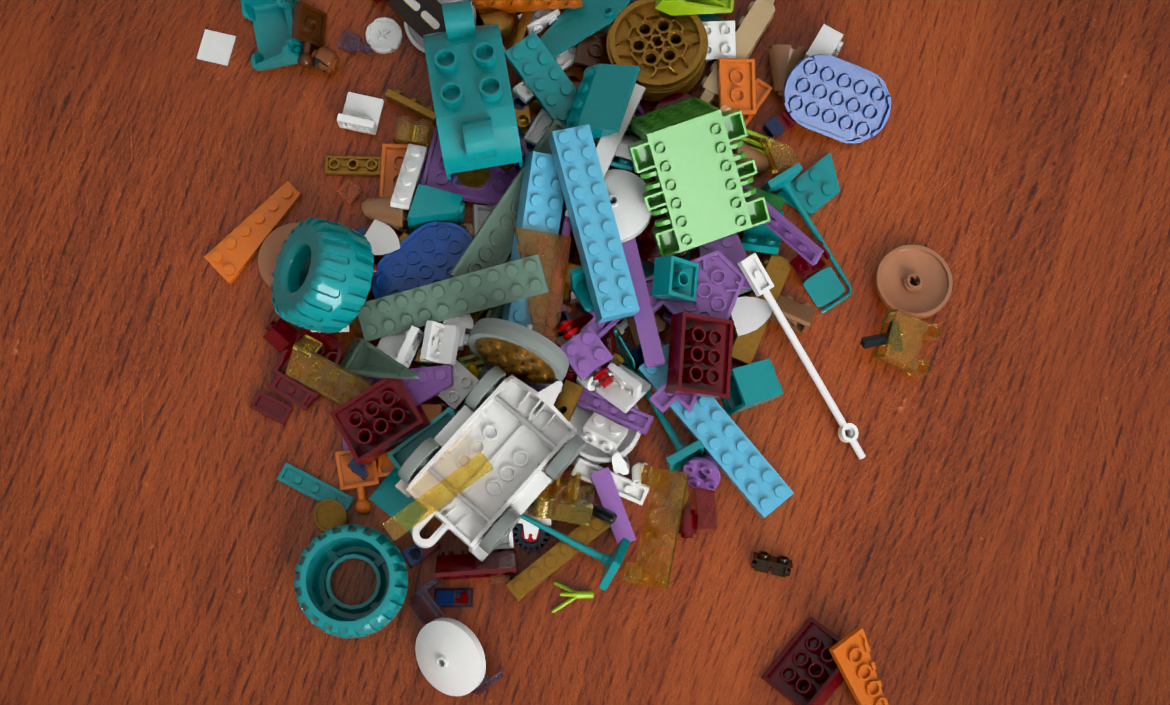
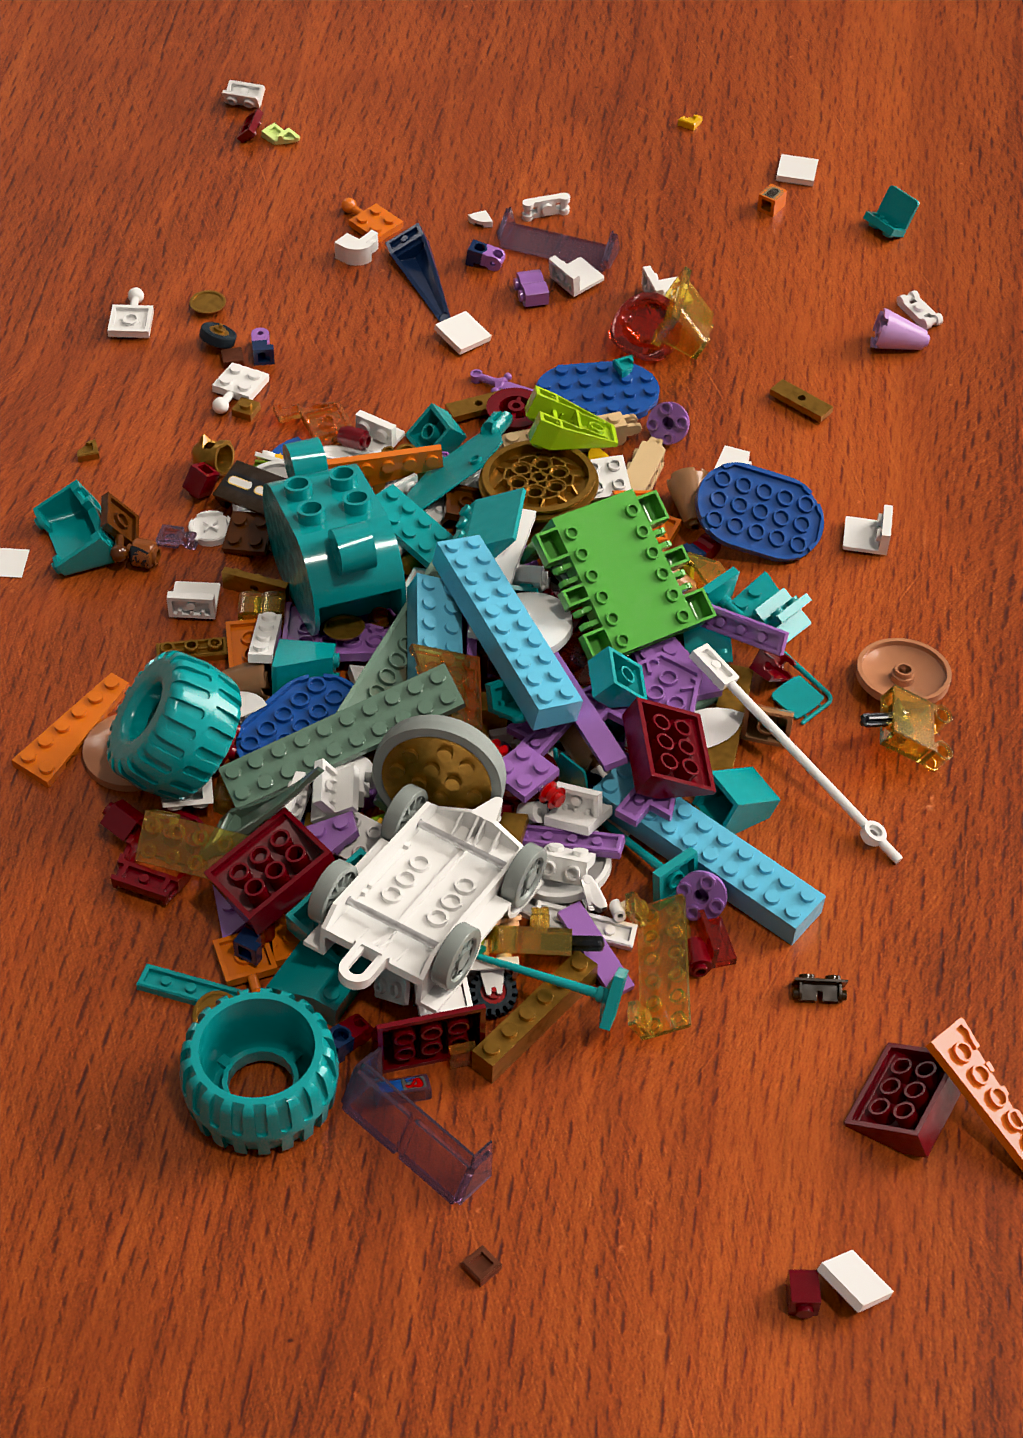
camera: 10 degrees left, 30 degrees down
(271, 407) = (119, 908): dark red tile -> none
(410, 51) = (246, 535): none -> reddish brown plate
(437, 496) = (365, 923): clear yellow tile -> none
(450, 656) = (413, 1143): white dish -> none
(571, 593) = (573, 1059): lime plant -> none
(831, 206) = (784, 612): none -> bracket
(926, 124) = (869, 534): none -> white bracket

